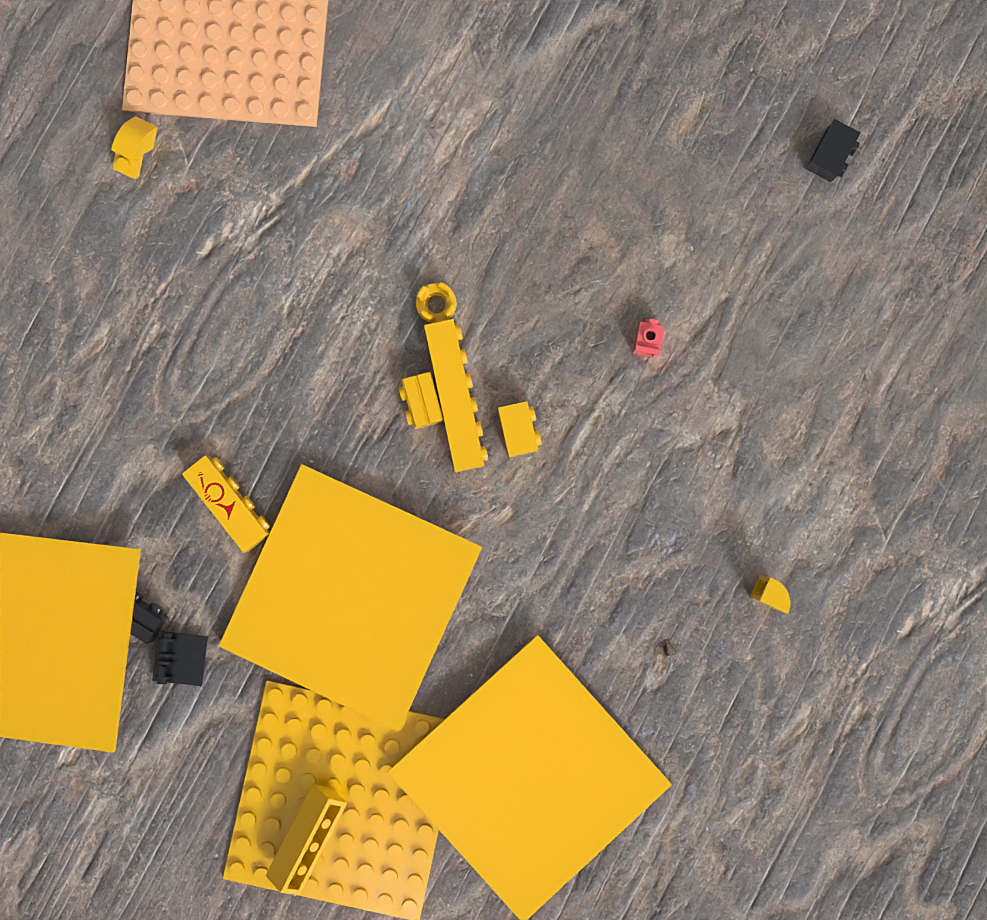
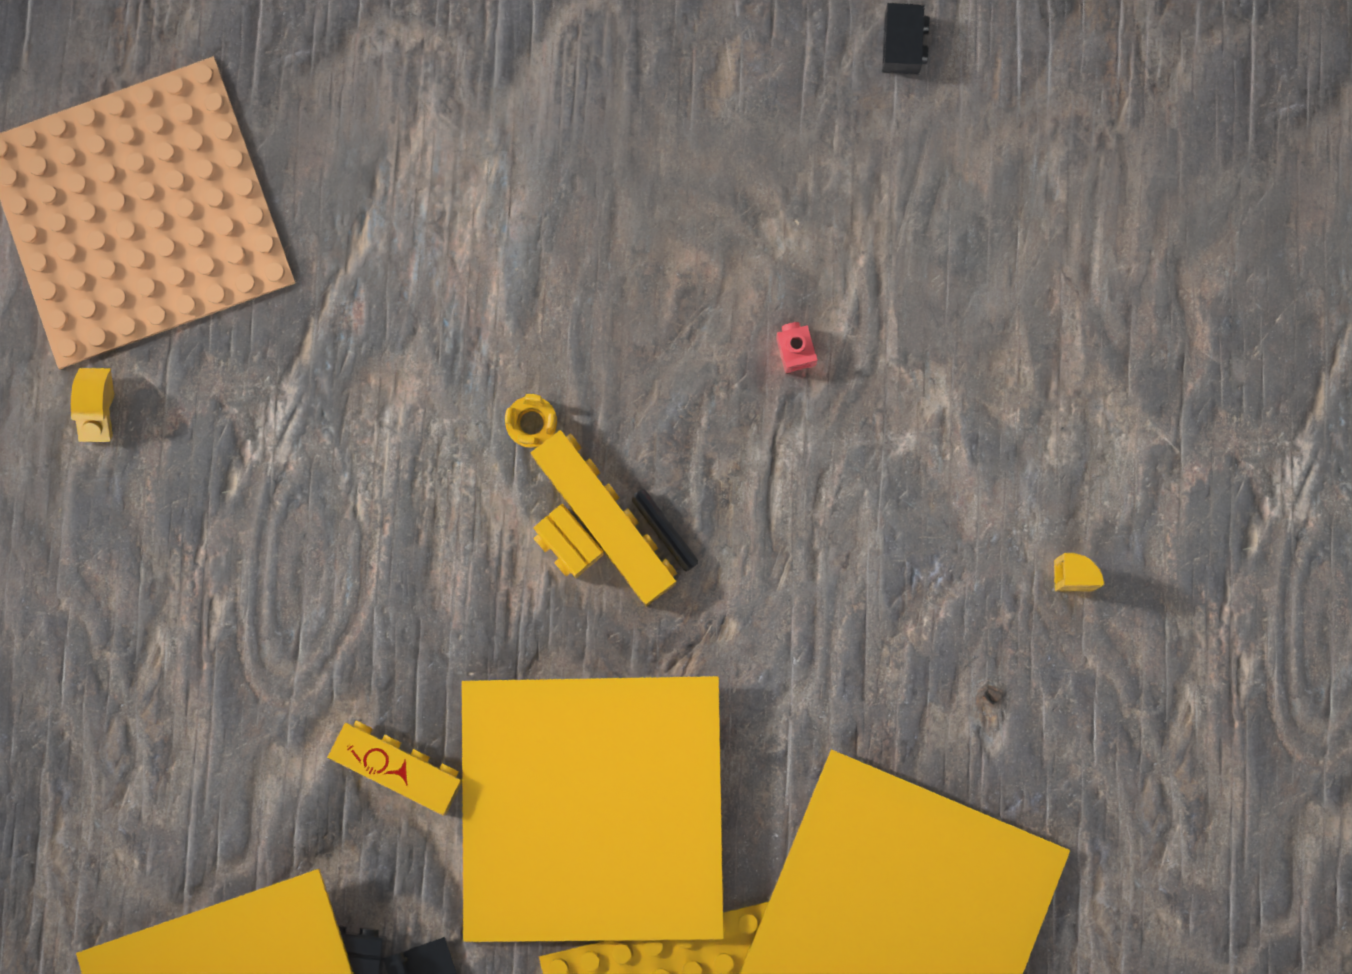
camera: 25 degrees left, 5 degrees down
(494, 424) = (664, 530): none -> black axle
(518, 429) = (696, 522): yellow brick -> none

